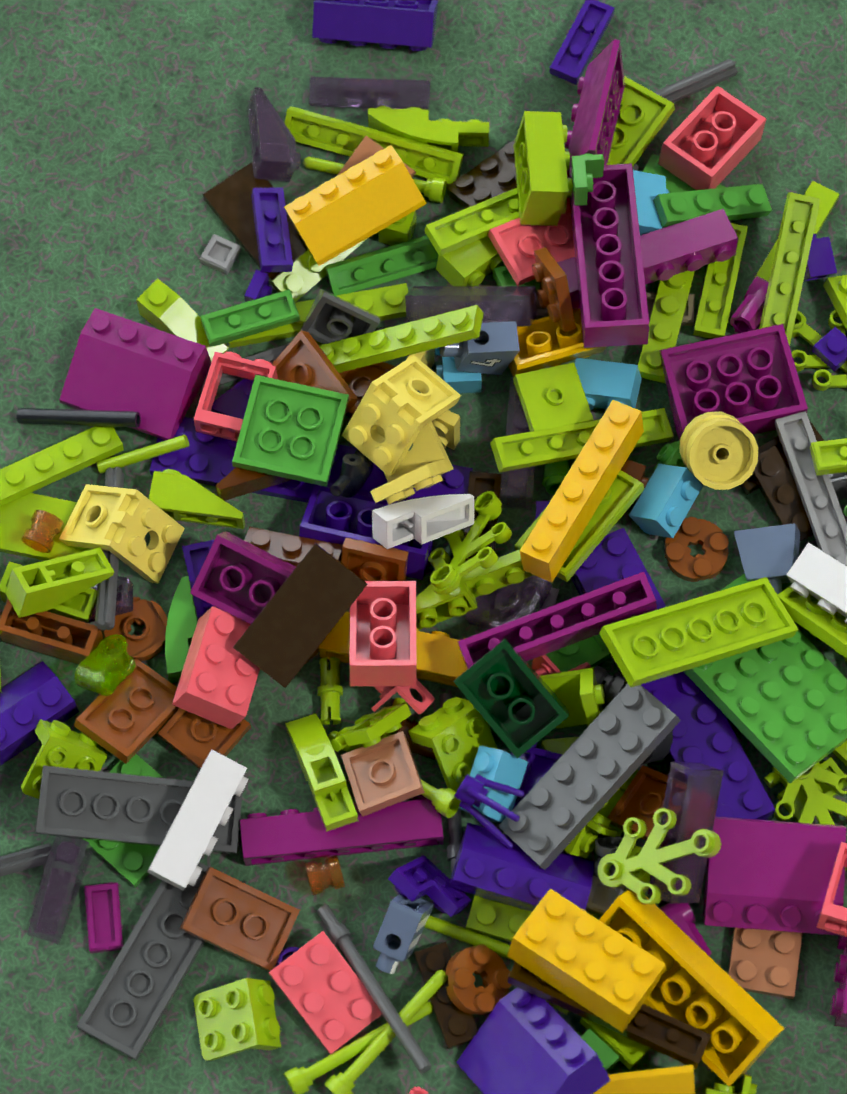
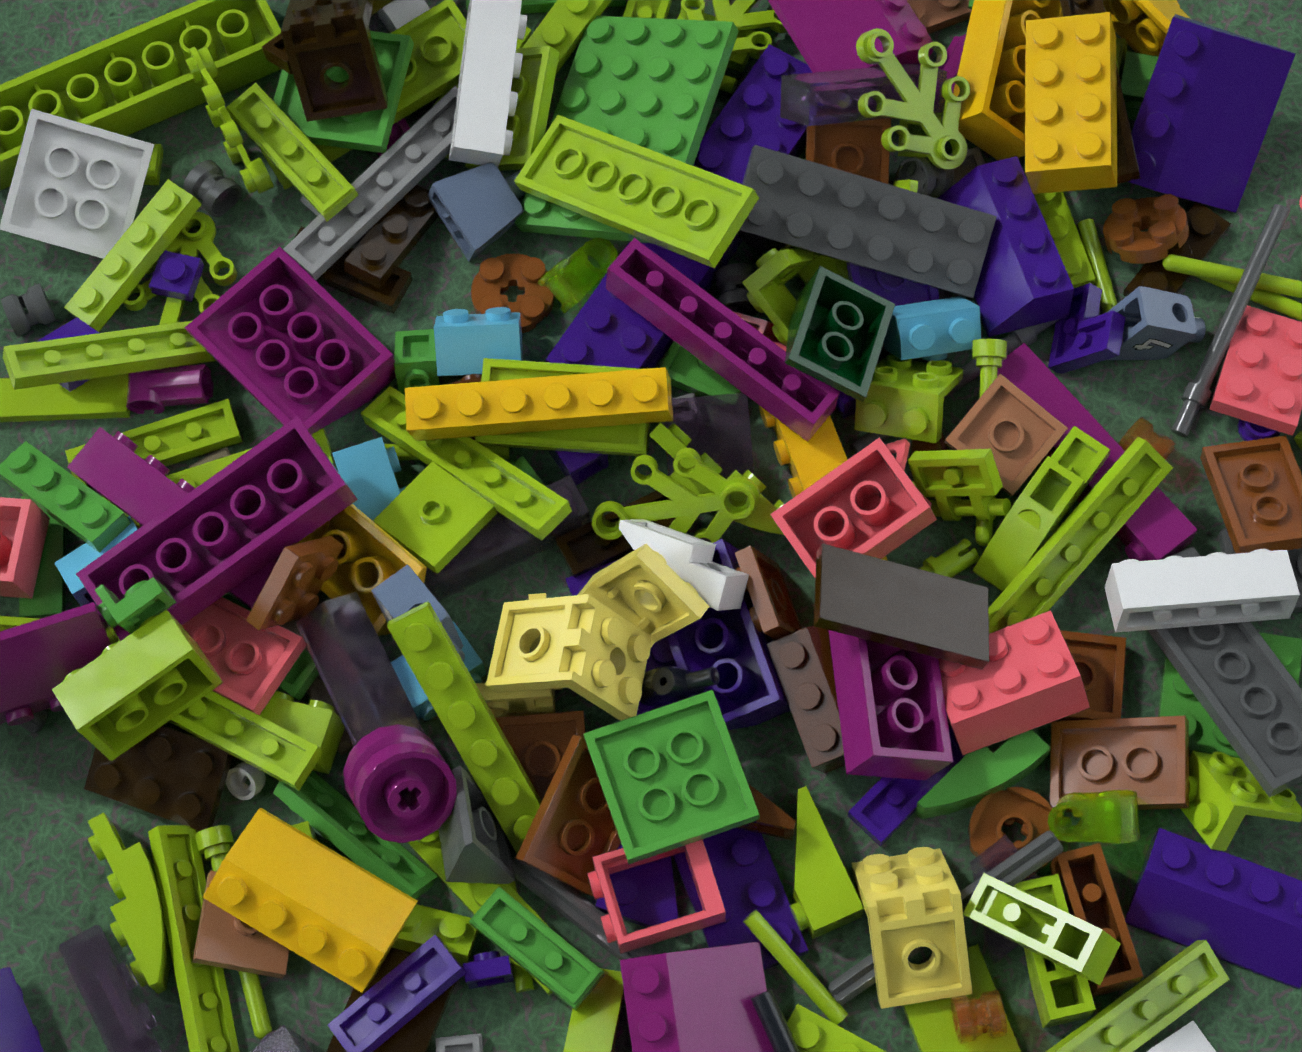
camera: 120 degrees left, 0 degrees up
(282, 769) = (1081, 536): none -> lime plate
(390, 284) = (399, 783): none -> magenta wheel
(473, 793) = (971, 313): dark purple plant -> none
(677, 586) = (575, 276): none -> clear neon green piece
(733, 461) = (393, 301): light yellow wheel -> none

